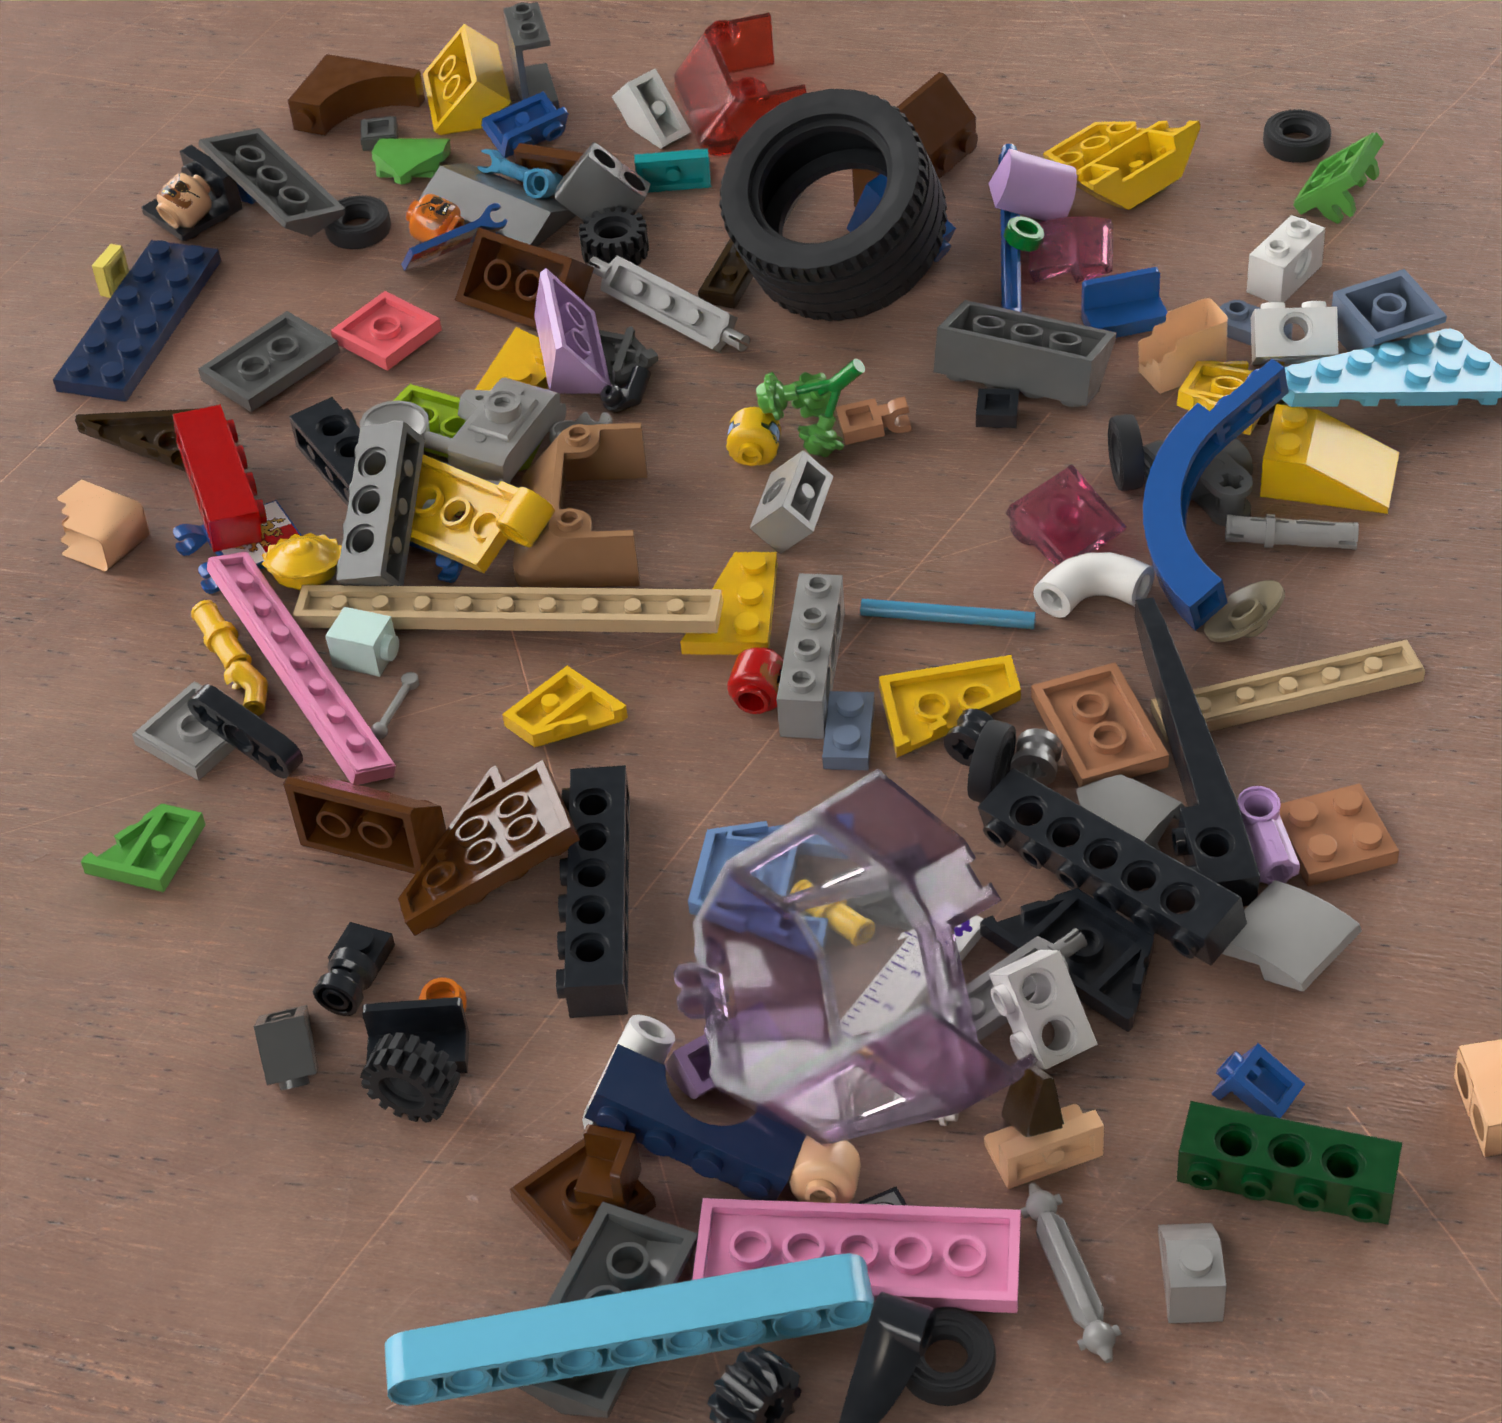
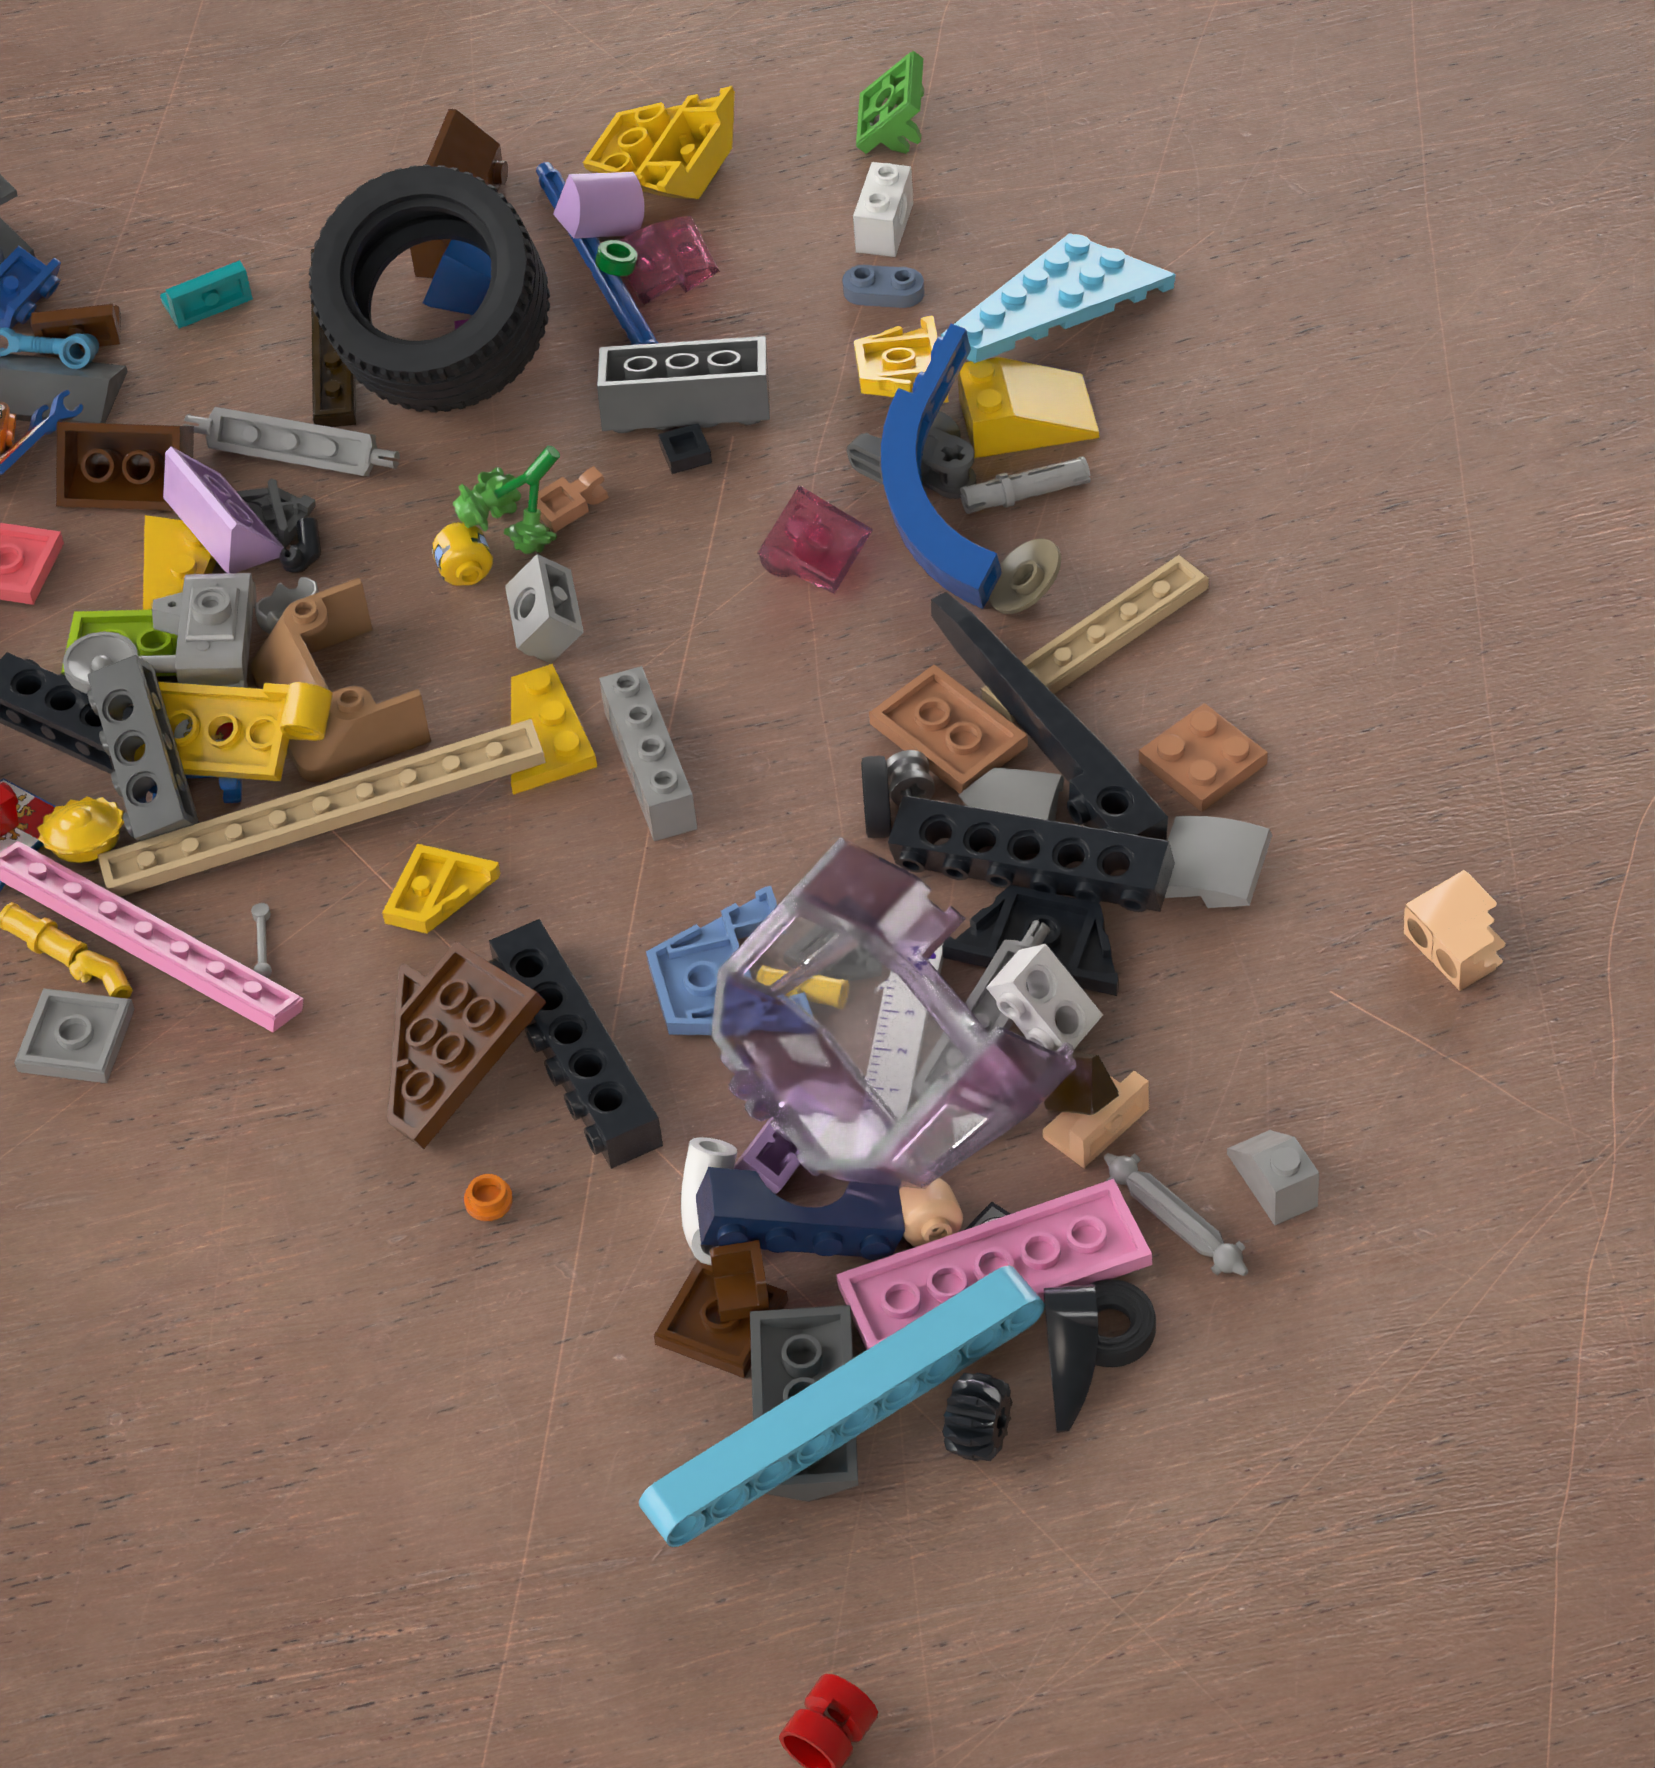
camera: 25 degrees left, 5 degrees up
(150, 849) = (108, 1165): bright green wing -> none
(245, 731) = (116, 1013): black beam -> none
(286, 1047) = (369, 1290): dark grey slope -> none
(343, 985) = (387, 1216): black wheel -> none
(362, 641) = (195, 890): light aqua brick -> none
(363, 822) = (315, 1062): reddish brown slope -> none
(368, 940) = (379, 1181): black plate -> none
(410, 1077) = (511, 1273): black tyre -> none
(433, 1020) = (486, 1239): black panel -> none
(600, 182) = (151, 338): dark grey piece -> none
(614, 235) = (185, 373): black tyre -> none
(651, 110) = (145, 233): white slope -> none
(712, 102) = (218, 212): clear red windscreen -> none
(755, 680) = (610, 794): red head -> none
(848, 730) = (720, 814): sand blue plate -> none
(929, 701) = (793, 752): yellow wing -> none
(948, 613) = (748, 669): dark azure bar -> none
(962, 738) = (840, 780): black wheel -> none
(1093, 576) = (867, 587): white cylinder -> none
(1123, 302) = (751, 302): blue panel -> none
(1126, 452) = (837, 455): black tyre -> none
(1186, 336) = (840, 308): light nougat piece -> none
(1258, 1081) = (1251, 996): blue bracket -> none
(1267, 834) = (1138, 758): lavender piece -> none
(1270, 341) = (914, 301): white brick -> none
(1292, 149) = (826, 86): black tyre -> none
(1311, 1150) = (1345, 1051): dark green brick -> none
(1383, 310) = (1006, 238): sand blue slope -> none

